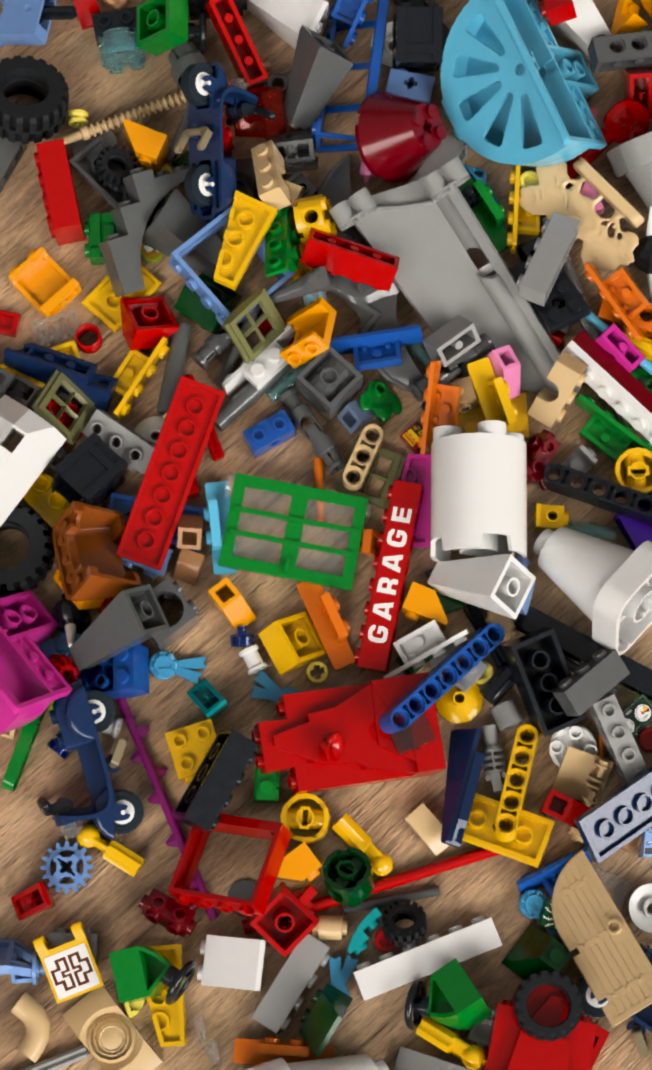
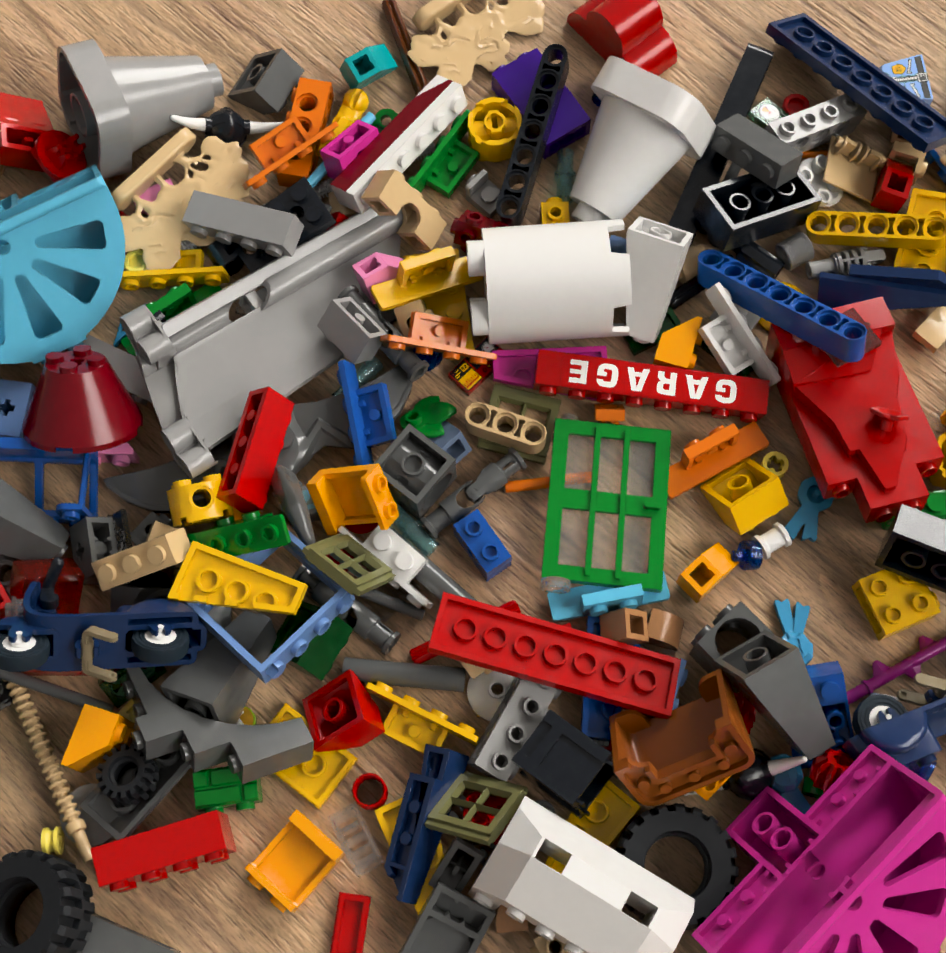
camera: 90 degrees left, 5 degrees down
(207, 699) = (831, 589): teal slope -> none

